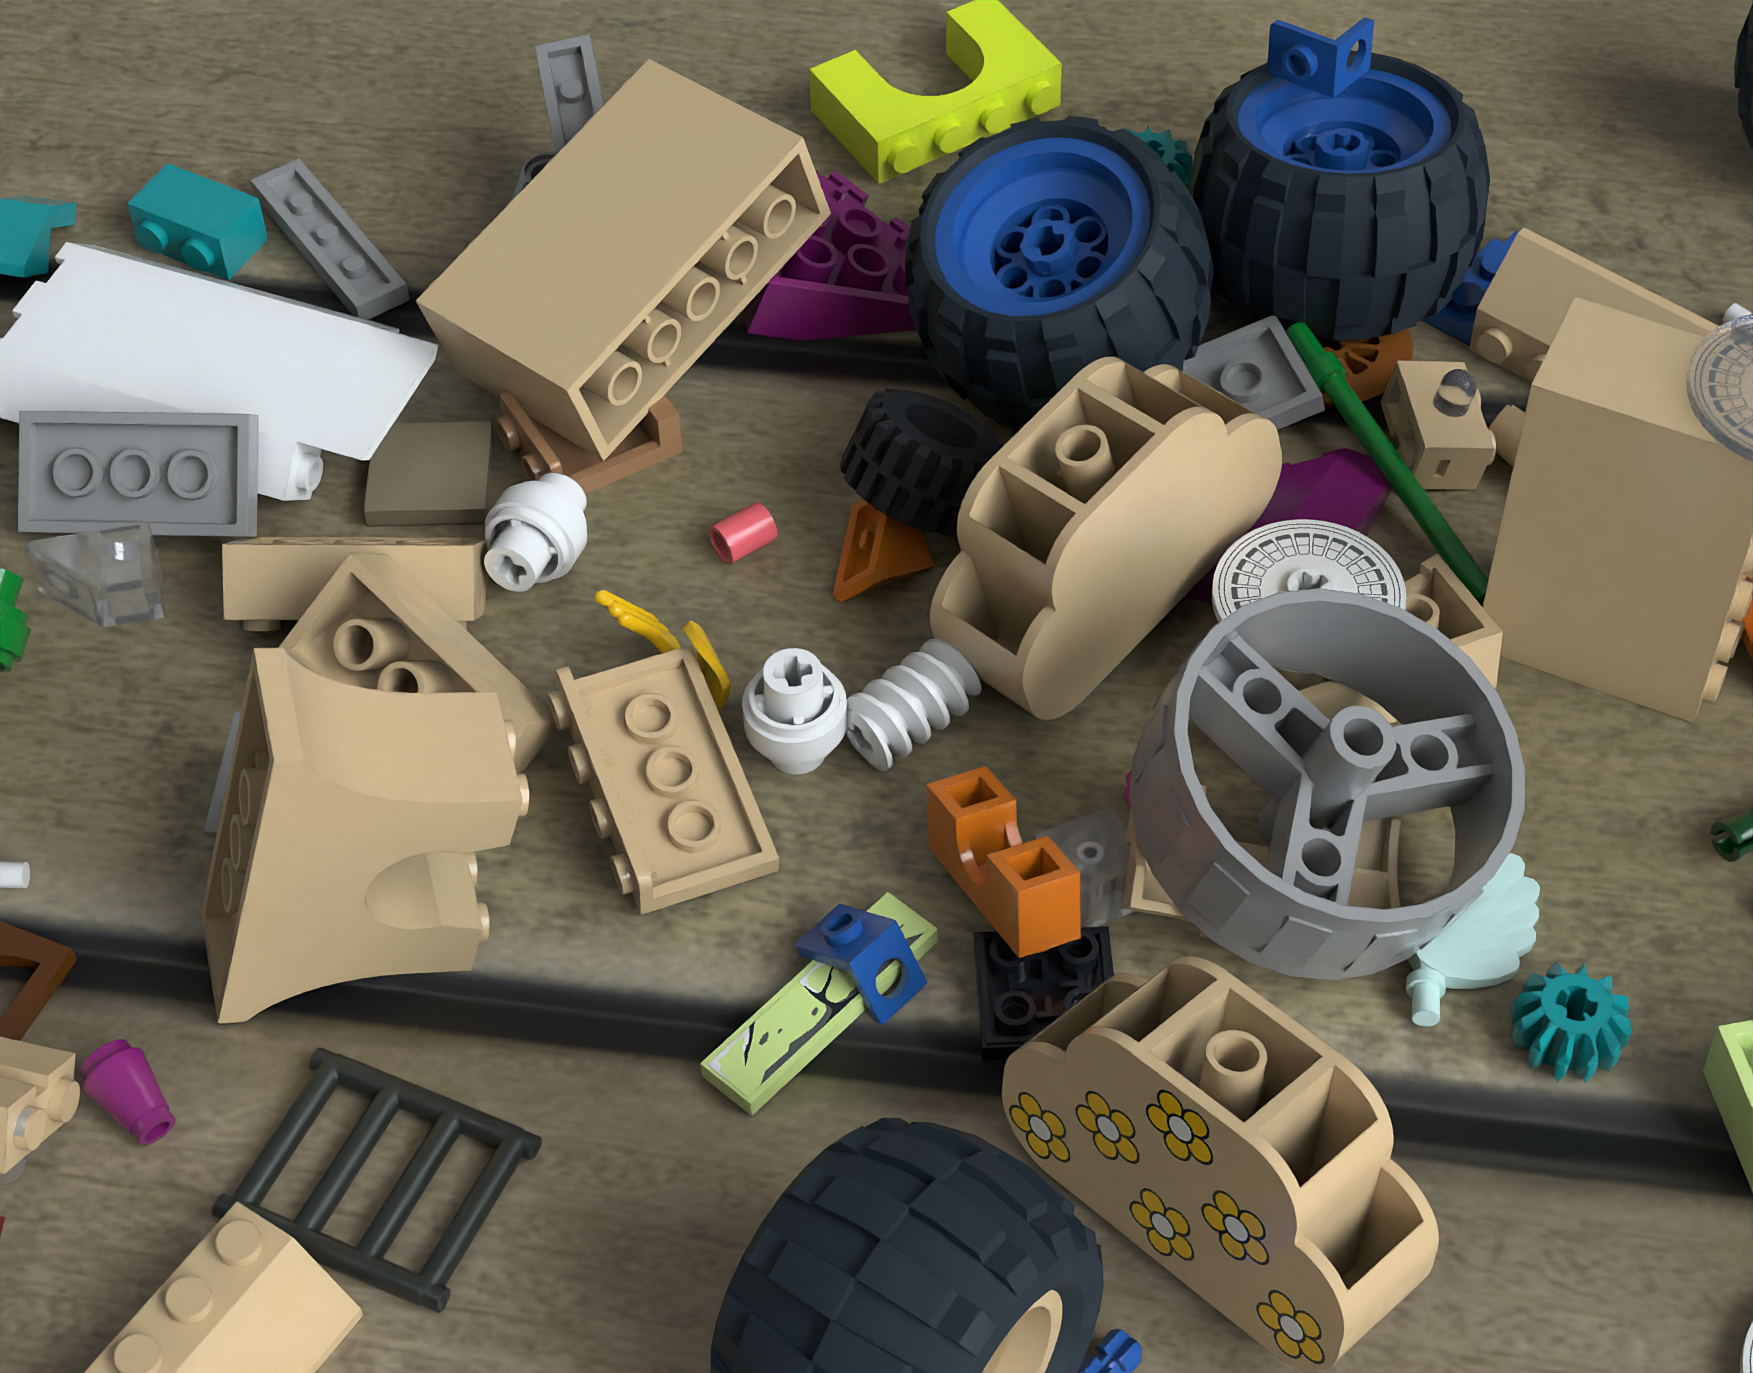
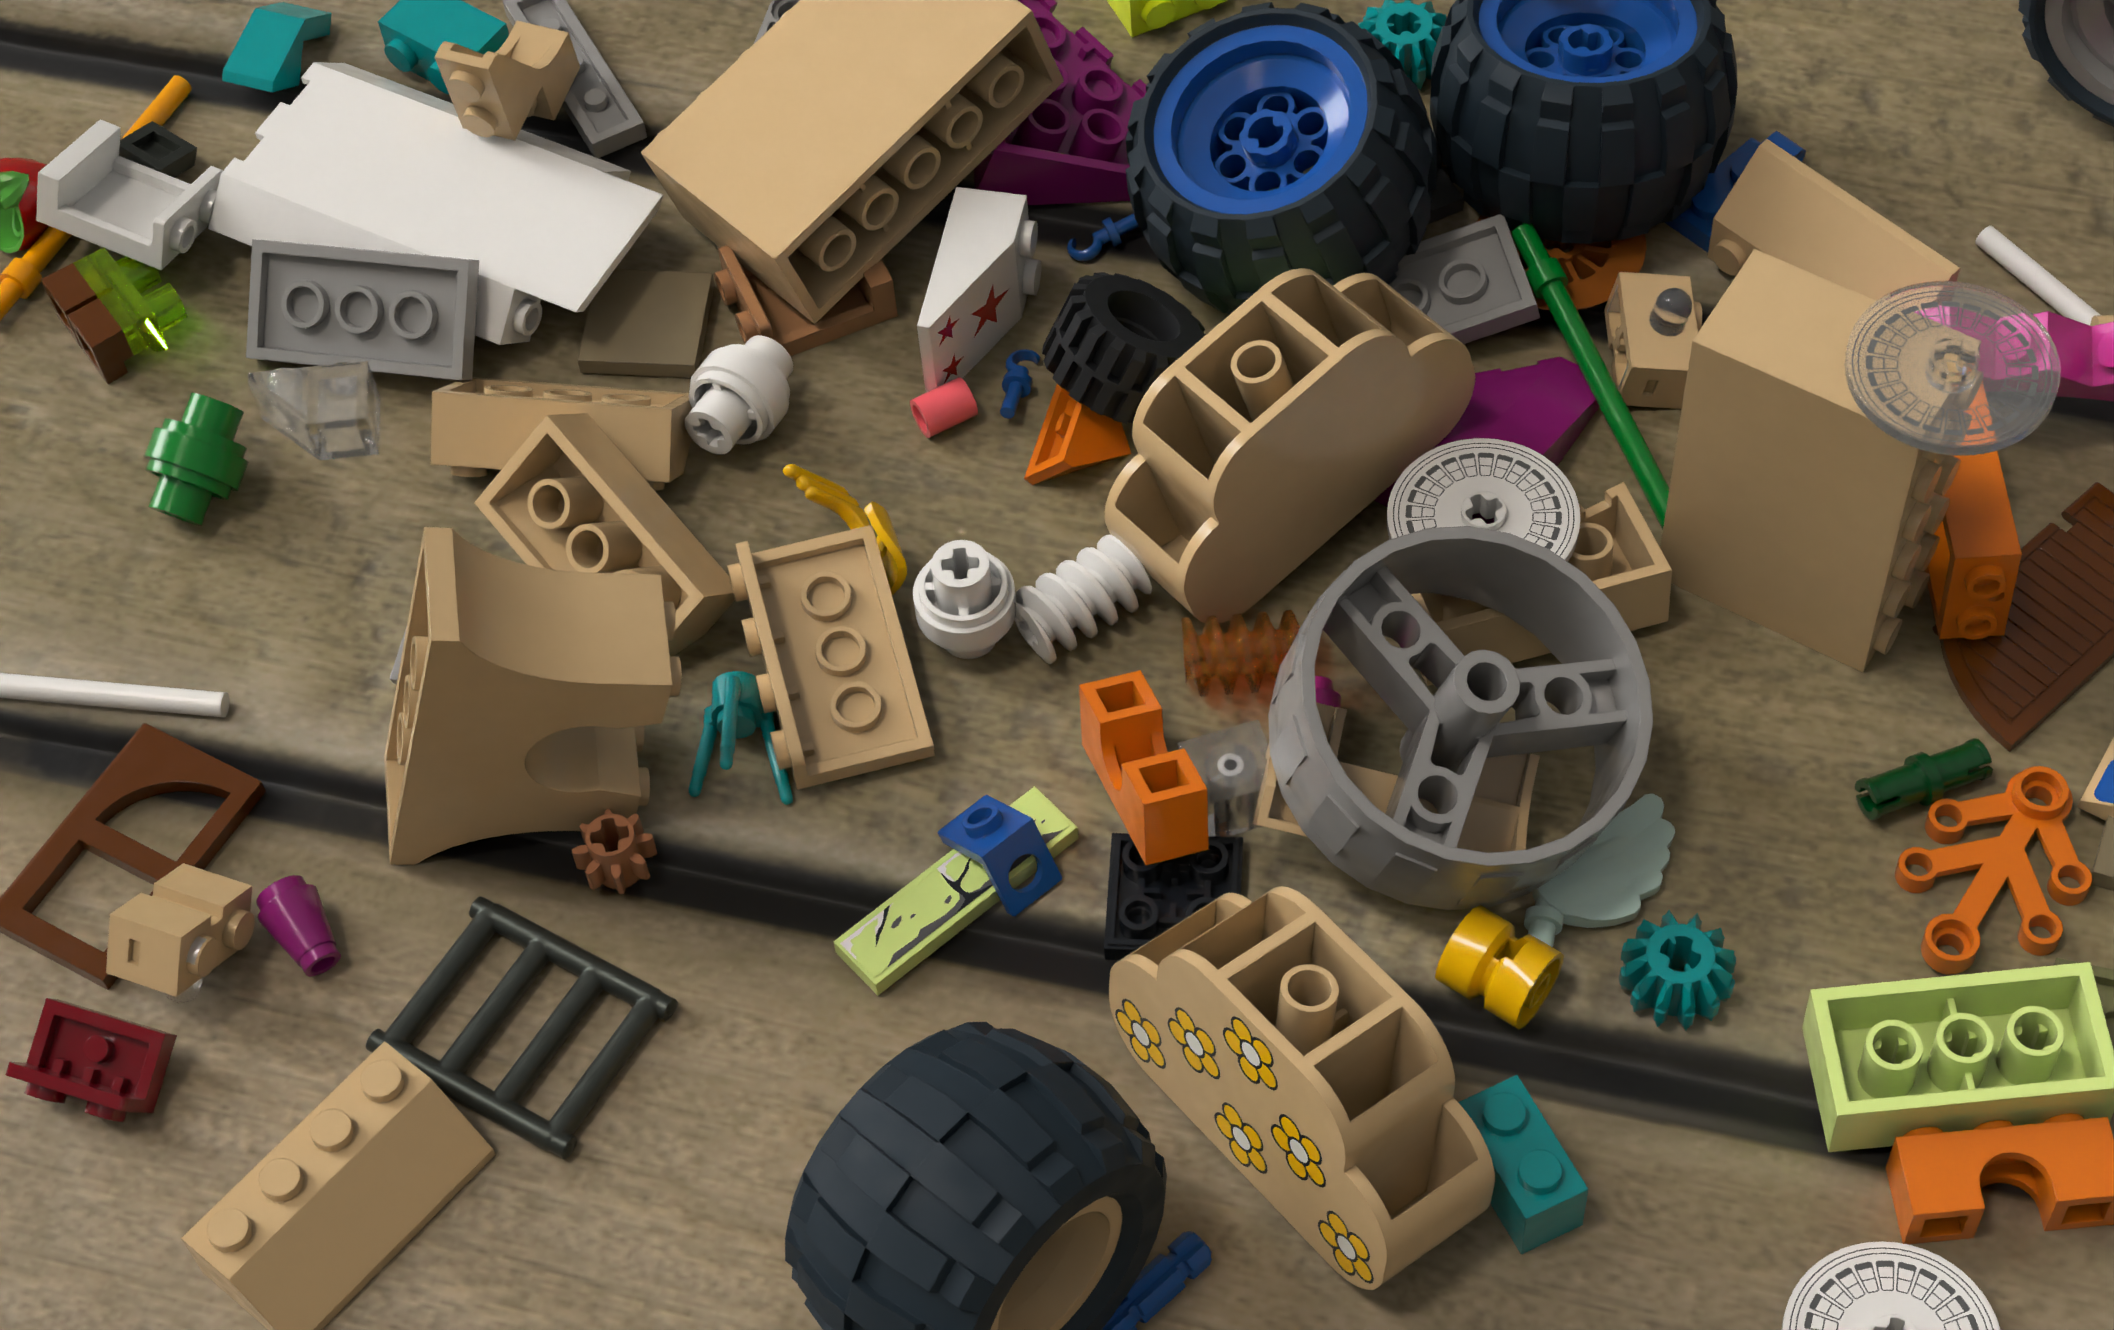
camera: 10 degrees right, 5 degrees up
(270, 246) = (505, 87): none -> tan arch
(458, 989) = (614, 851): none -> nougat gear
(569, 843) = (735, 714): none -> teal plant
(766, 407) = (976, 282): none -> slope
(812, 504) = (1016, 381): none -> blue hand
(886, 361) = (1110, 232): none -> blue hand
(1080, 742) = (1237, 651): none -> clear orange piece
(1393, 1032) = (1493, 963): none -> yellow wheel
(1477, 1246) = (1535, 1181): none -> teal brick

